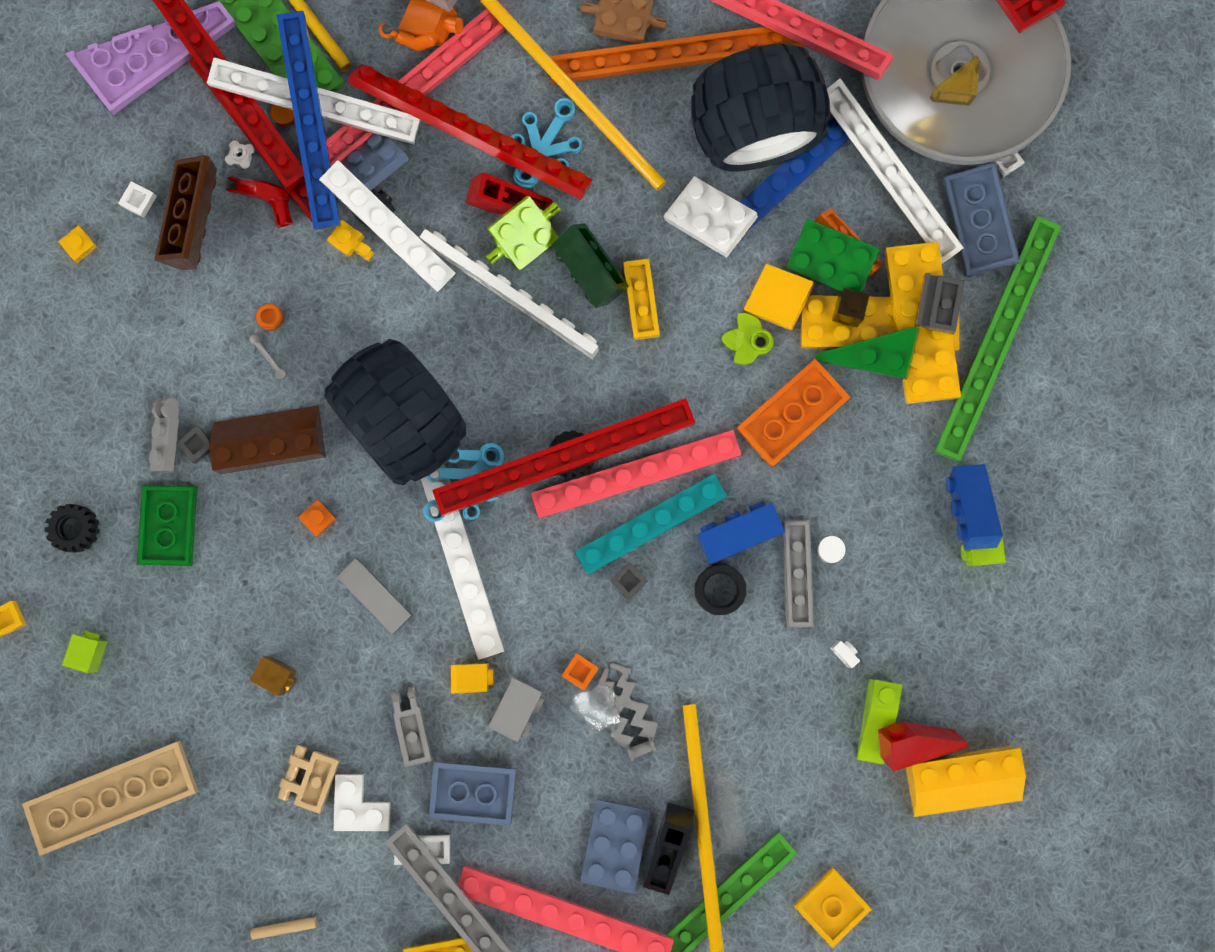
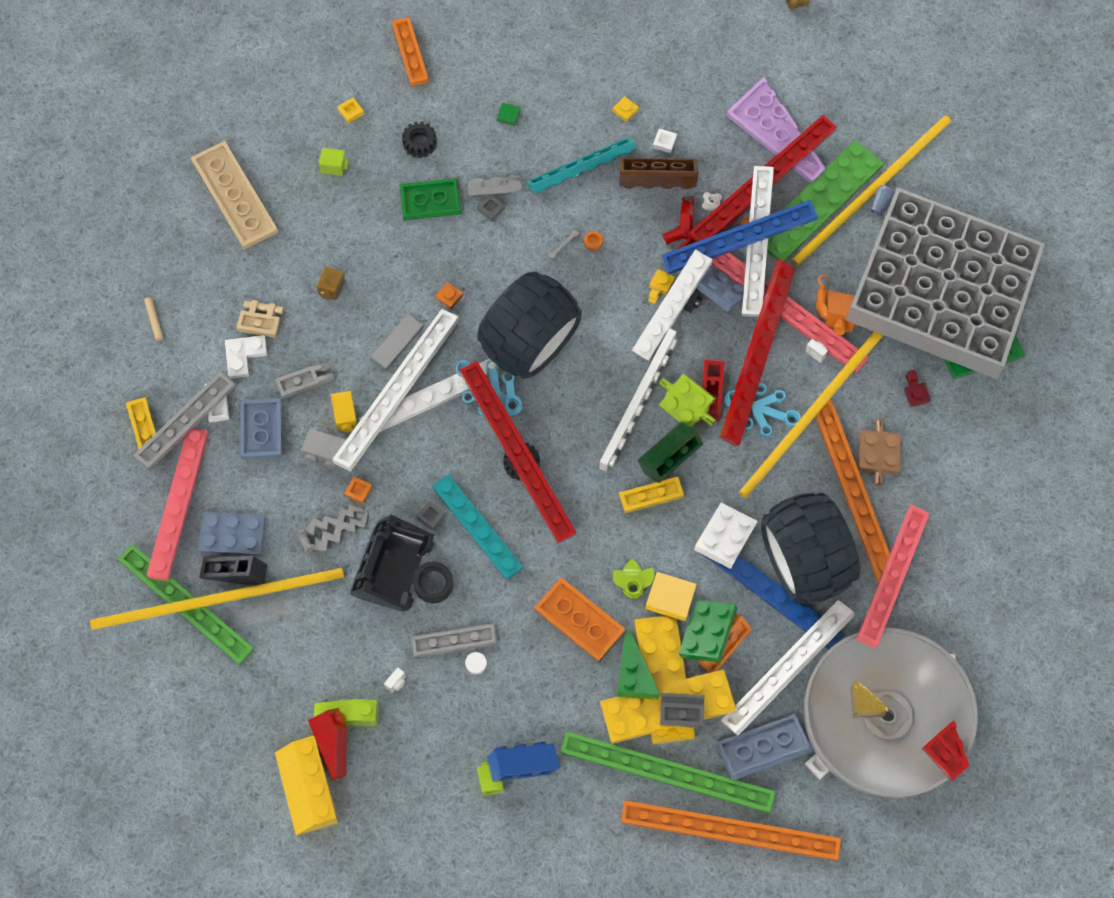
camera: 80 degrees right, 15 degrees down
(54, 401) = (508, 114): none -> green tile
(153, 315) = (584, 163): none -> teal plate
(266, 440) = (499, 250): reddish brown slope -> none
(449, 605) = (395, 390): none -> white plate
(477, 61) = (816, 350): none -> white plate
(596, 712) = (332, 506): clear plate -> none
(636, 474) = (514, 512): coral plate -> none
(691, 642) = (391, 563): none -> black windscreen
(740, 532) = (479, 590): blue brick -> none
(832, 907) = (200, 698): yellow tile -> none
(850, 307) = (668, 645): dark brown brick -> none
(1075, 278) = (731, 830): none -> orange plate

